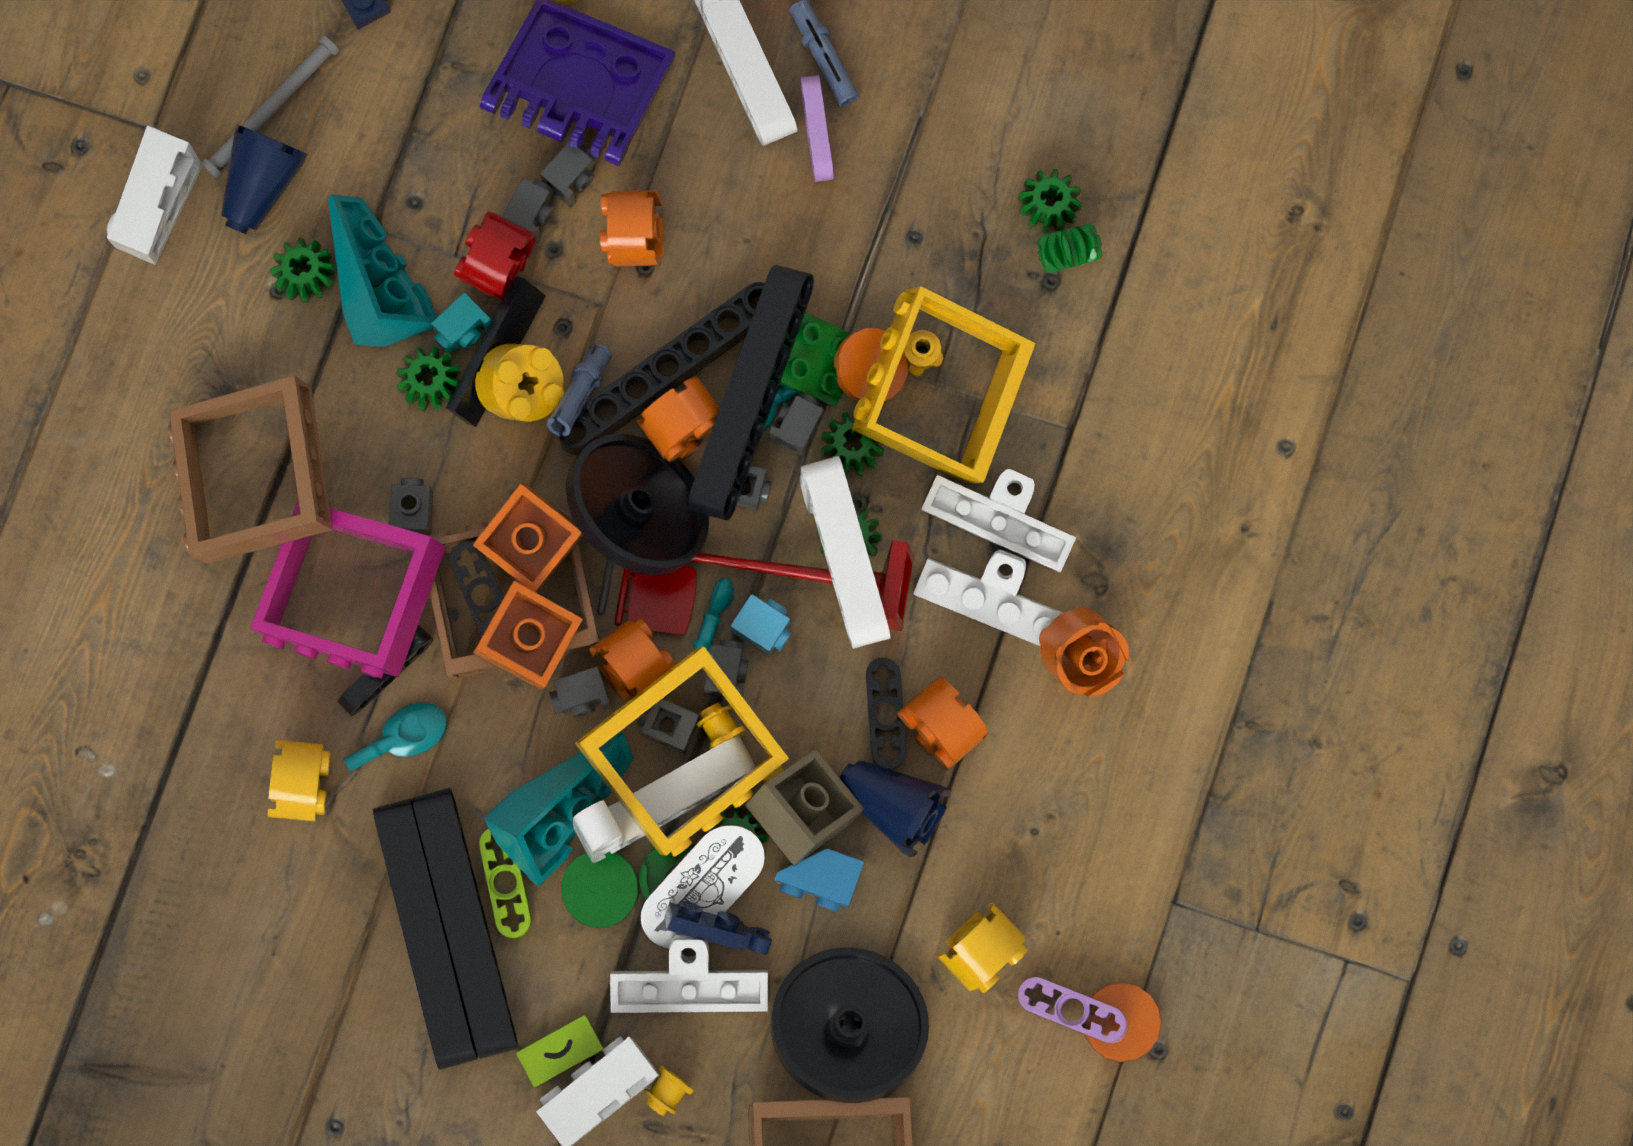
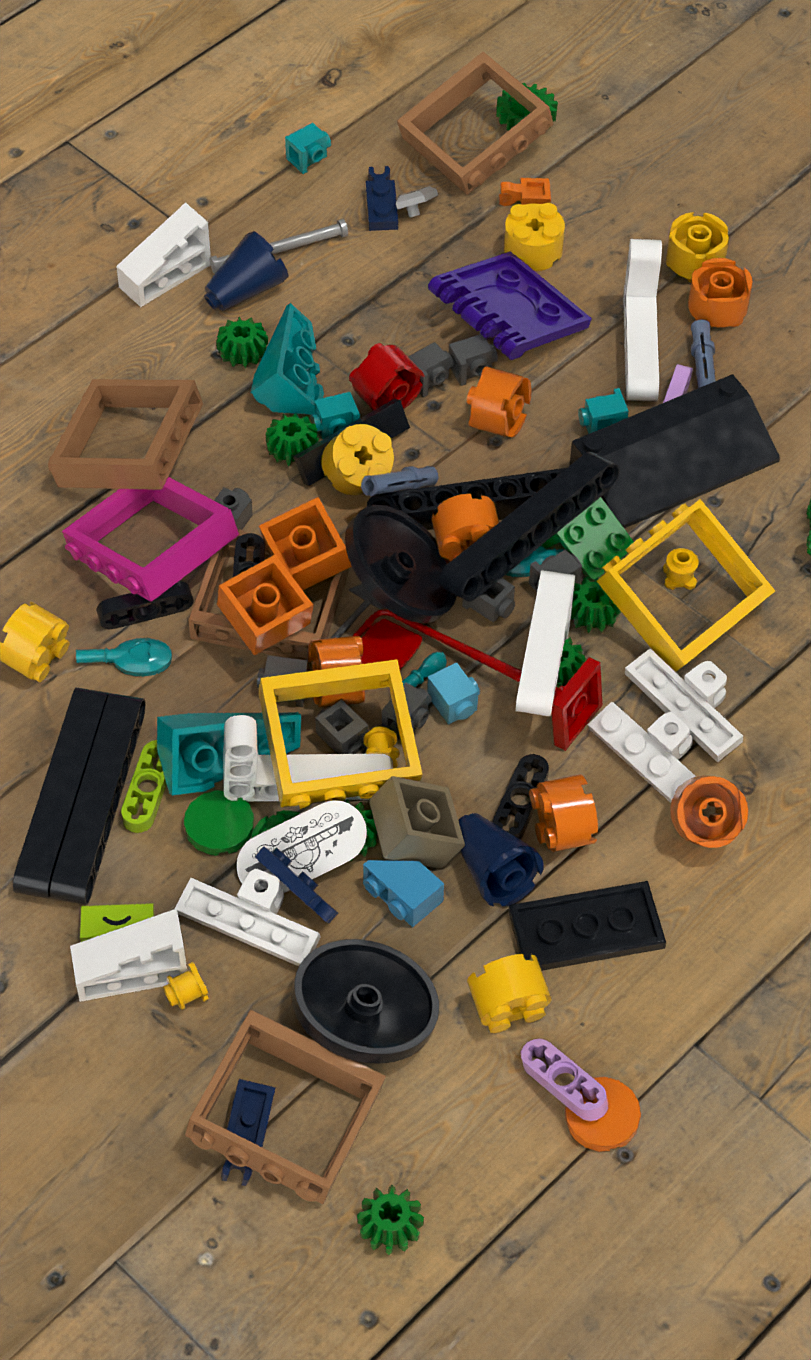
camera: 30 degrees right, 25 degrees down
(750, 182) = (603, 411): none -> teal brick
(852, 196) = (681, 449): none -> black slope
(856, 357) = (646, 571): orange tile -> none
(1015, 827) = (588, 926): none -> black tile

